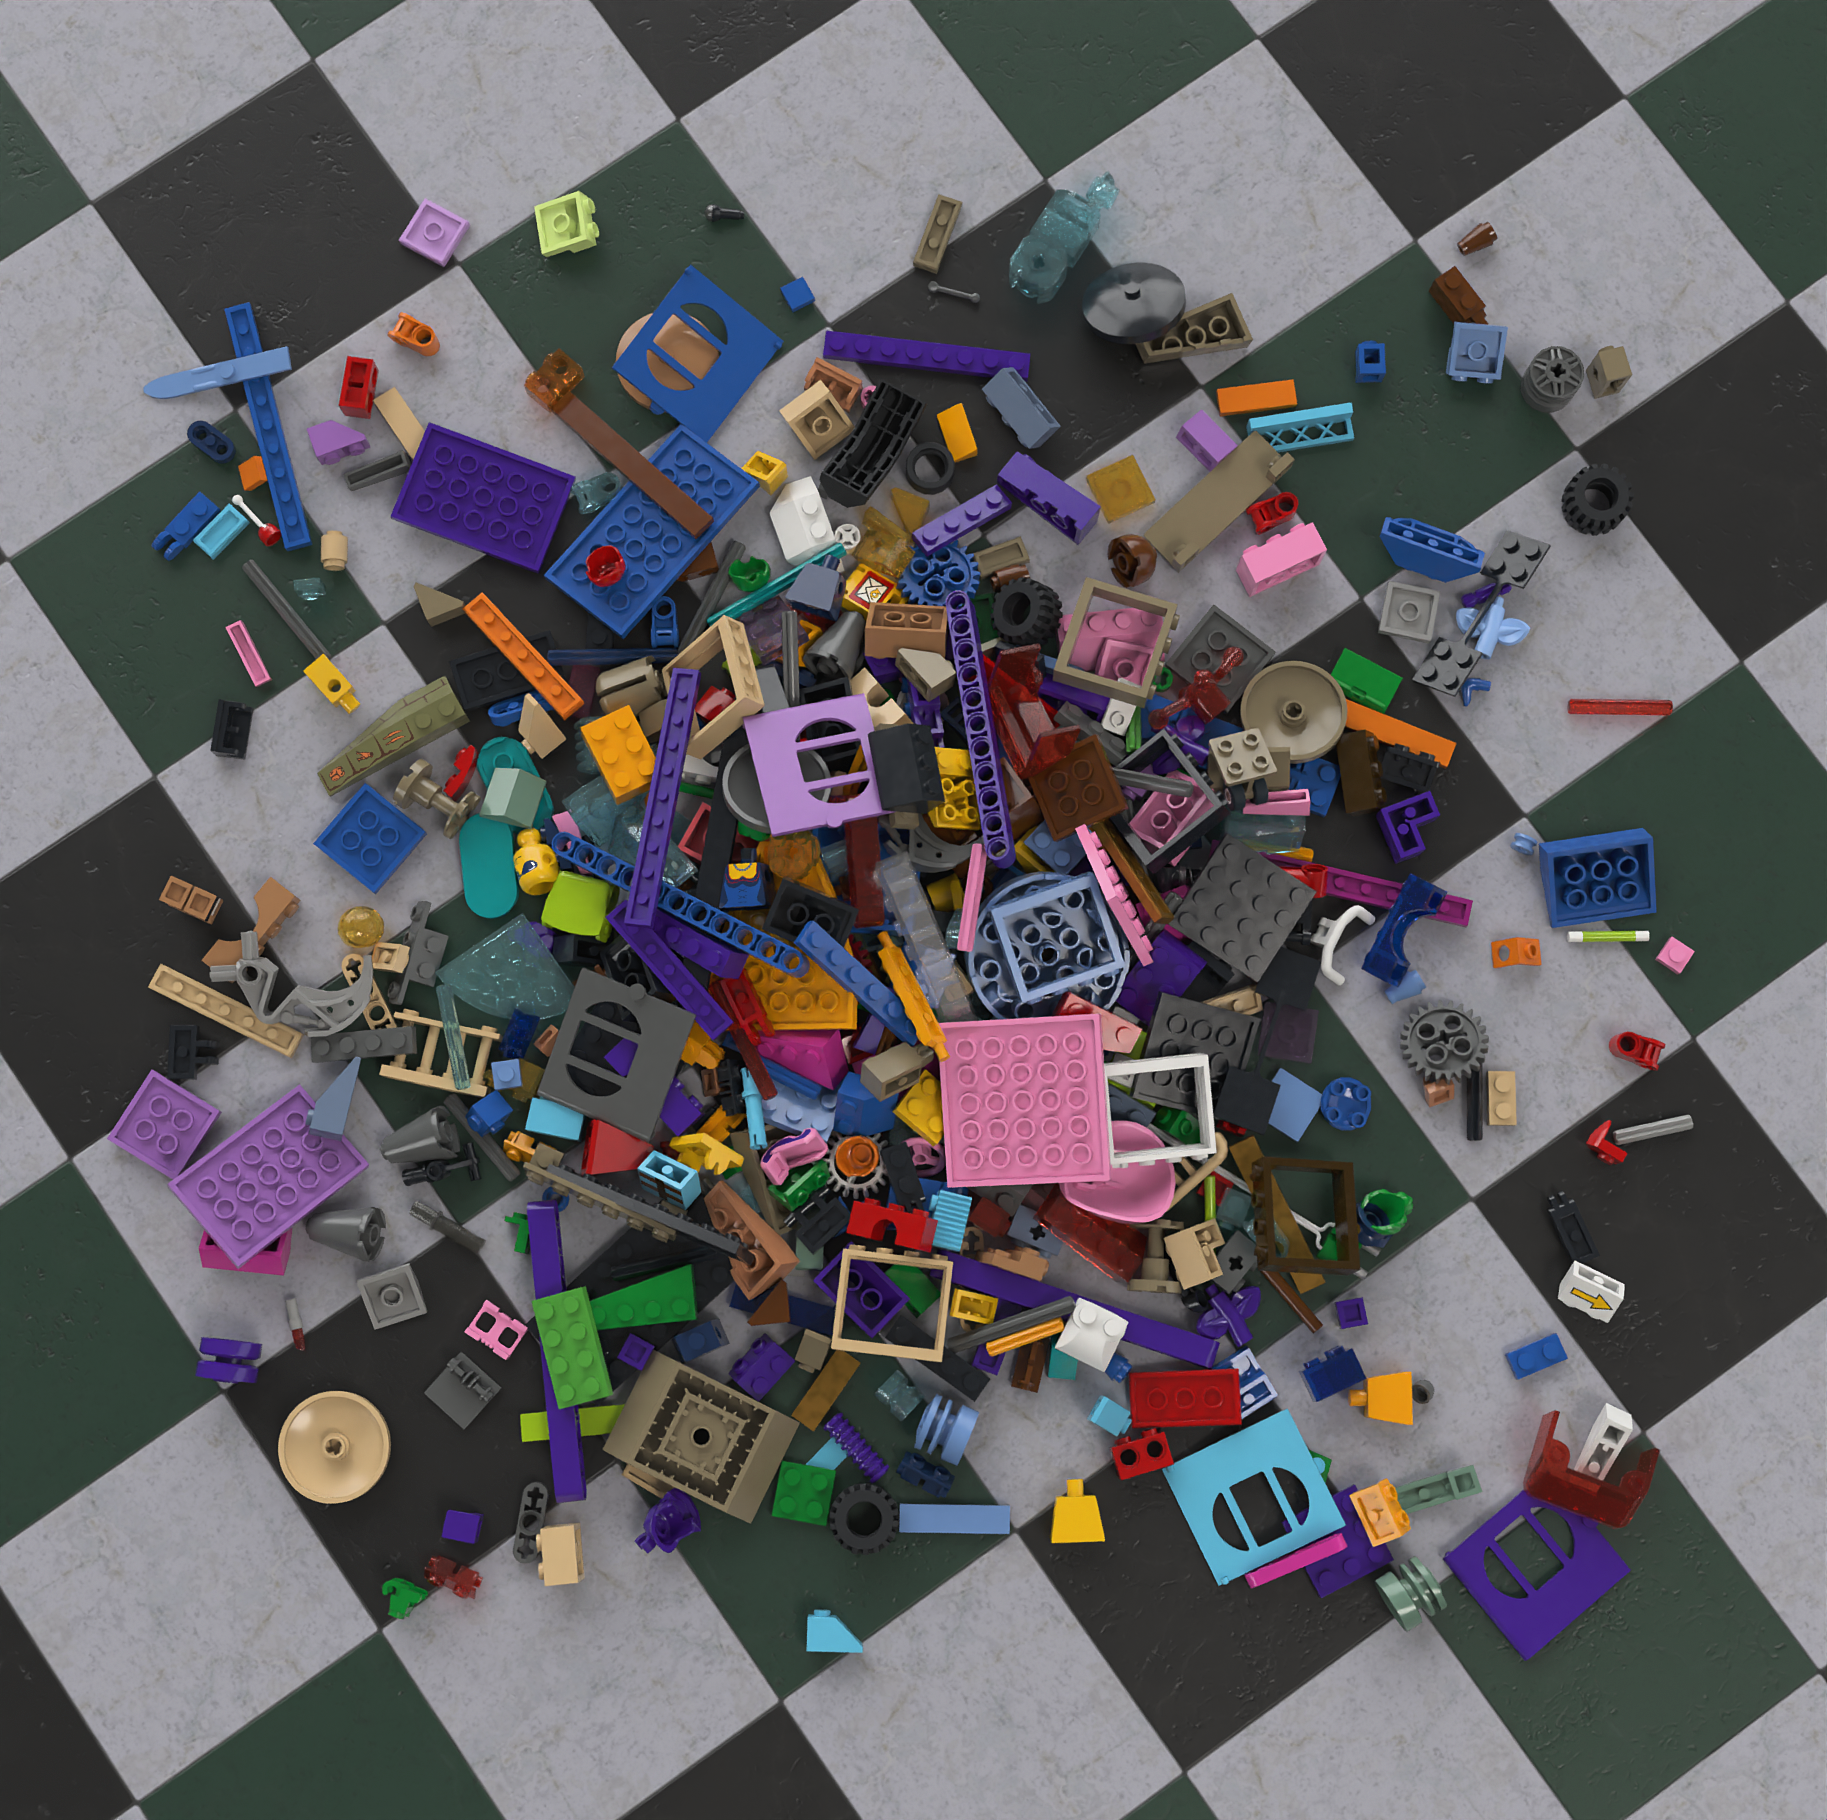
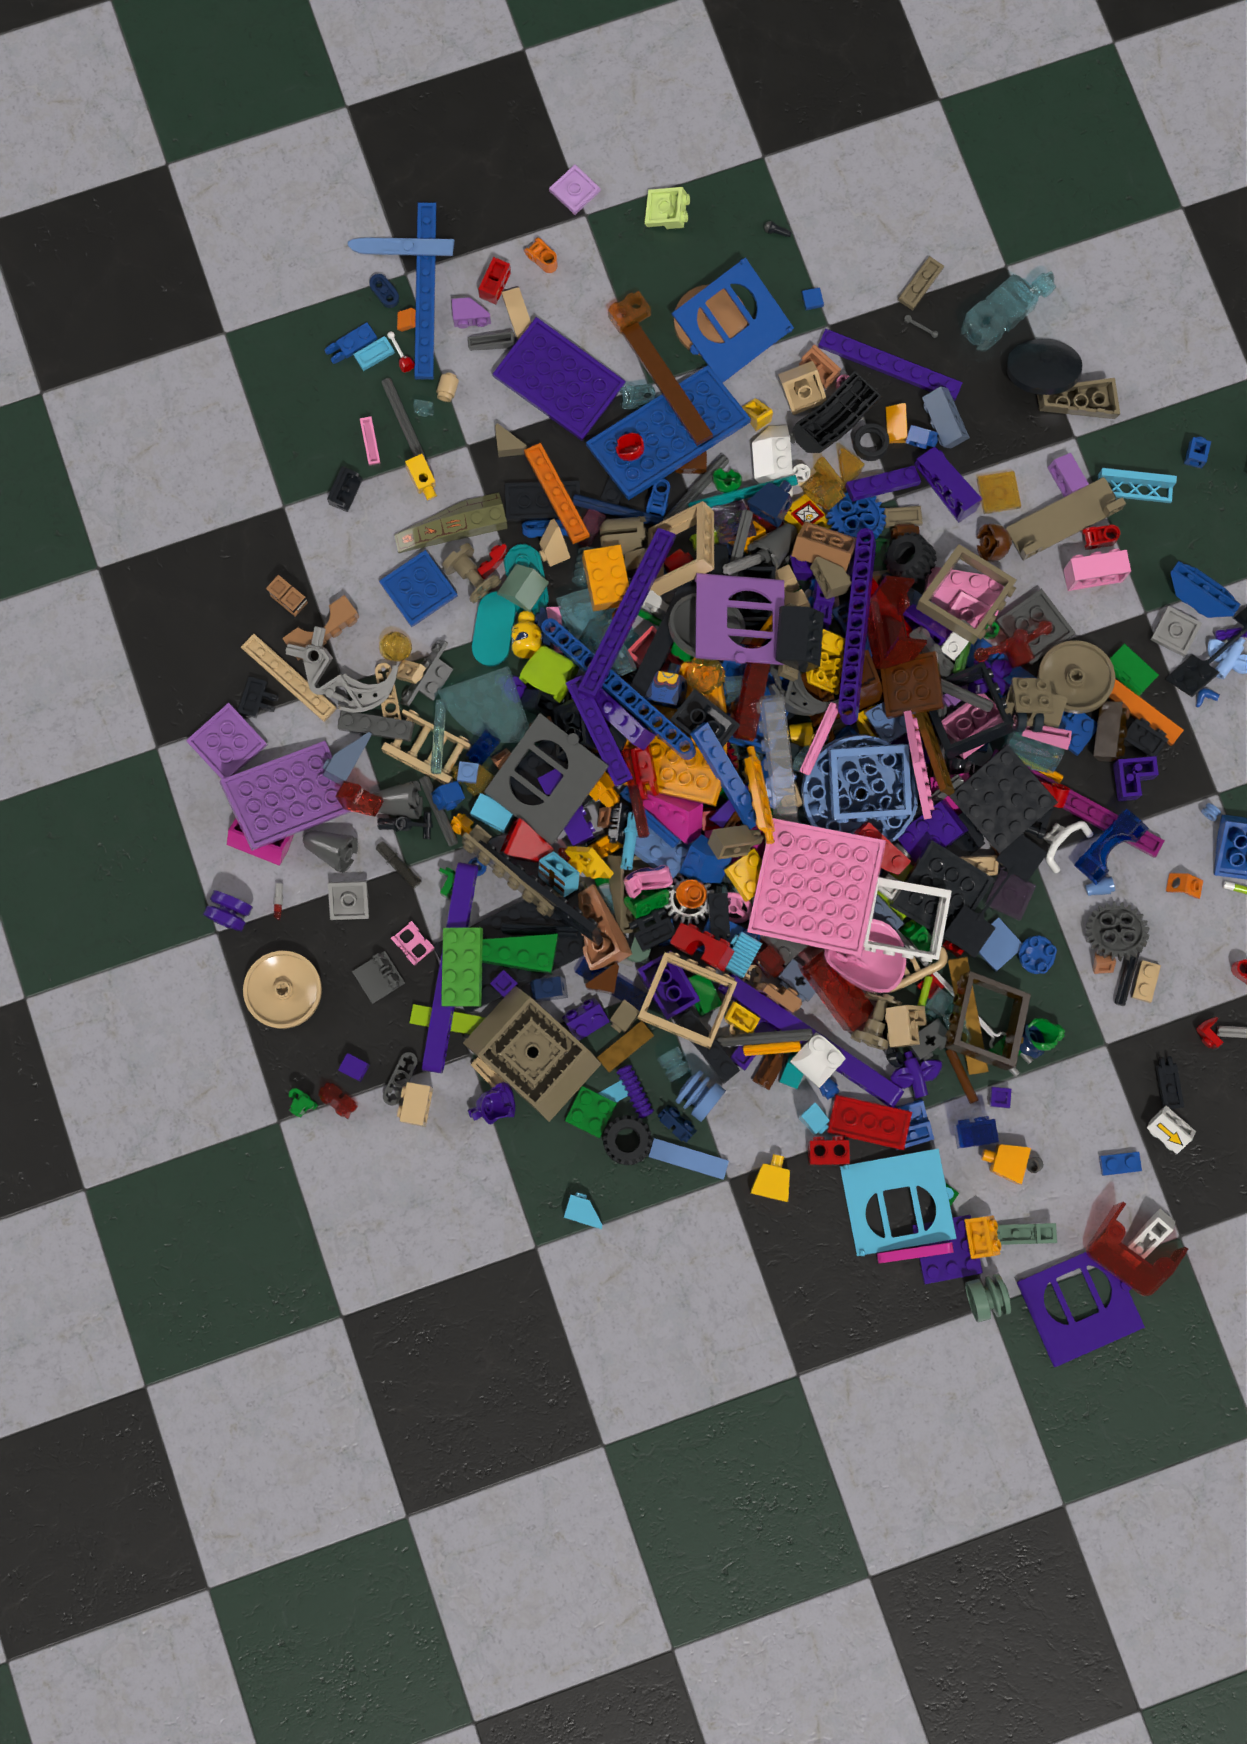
camera: 15 degrees right, 0 degrees up
(367, 1155) = (358, 800): none -> clear red arch
(801, 686) = (741, 564): none -> light grey axle
(996, 443) = (921, 437): none -> brick
(1256, 397) = (1111, 455): orange tile -> none

